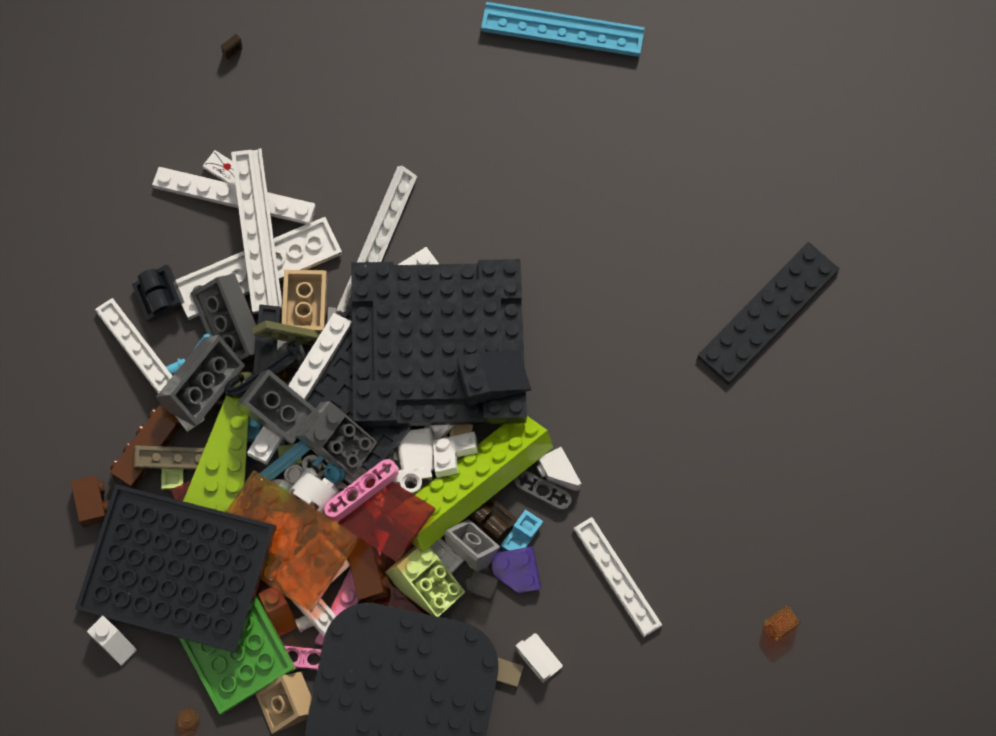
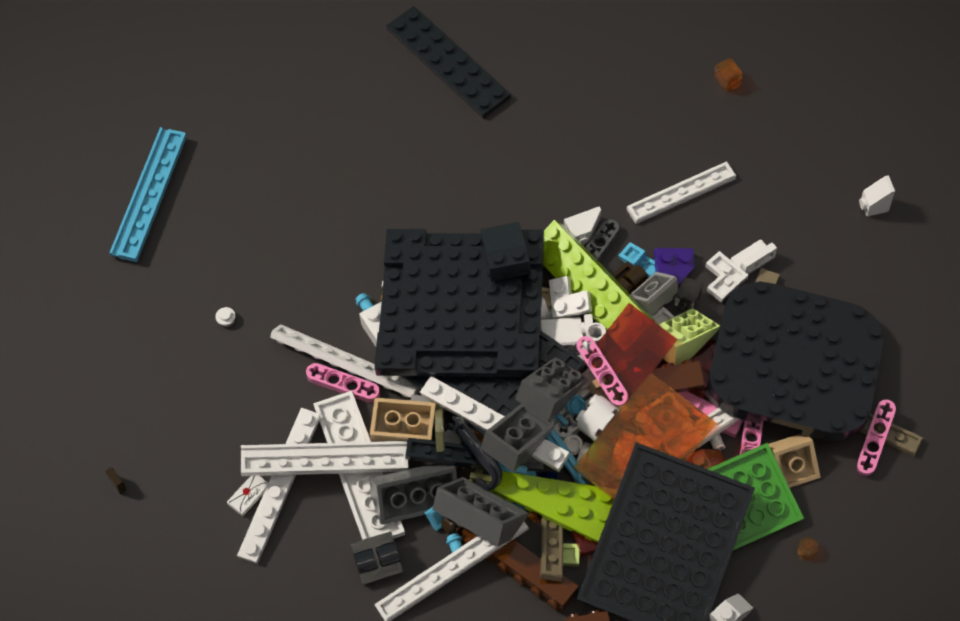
camera: 80 degrees left, 10 degrees down
(350, 243) = (344, 380): none -> bright pink beam
(422, 122) = (225, 316): none -> white plate
(447, 255) = (364, 301): none -> medium azure pin
(509, 631) = (728, 274): none -> white plate

